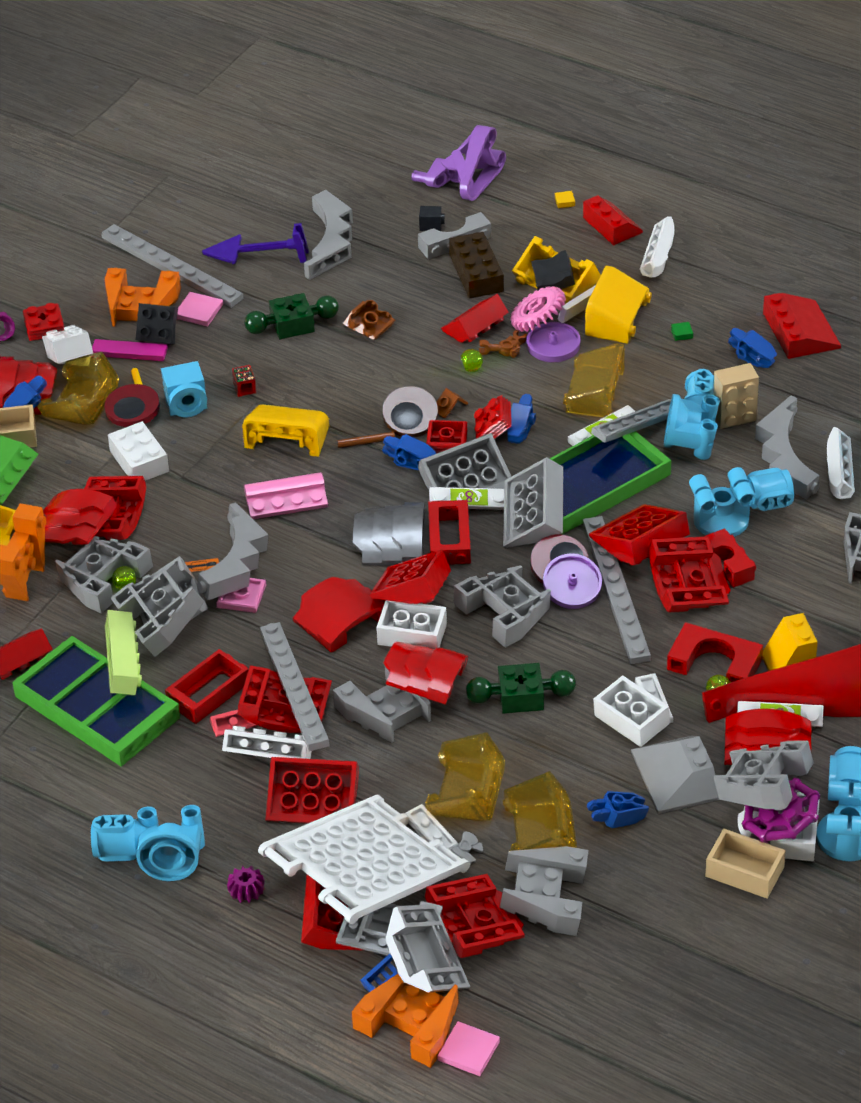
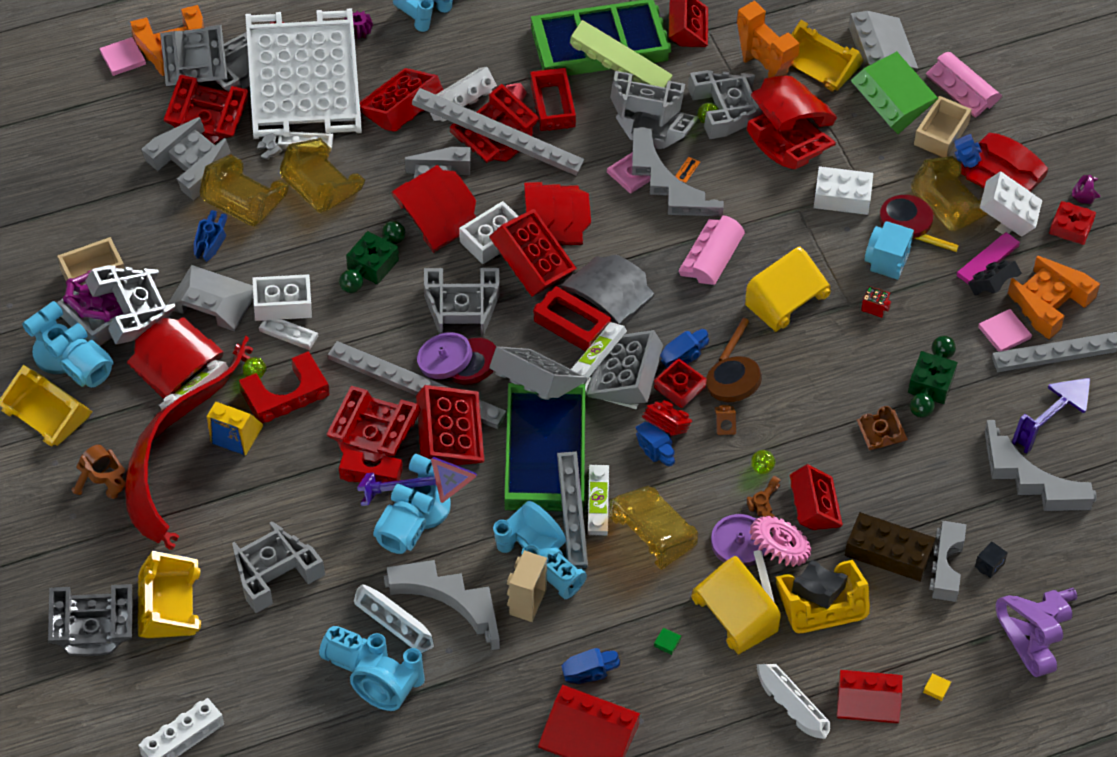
camera: 125 degrees right, 10 degrees up
(754, 529) = (446, 477): none -> dark purple piece

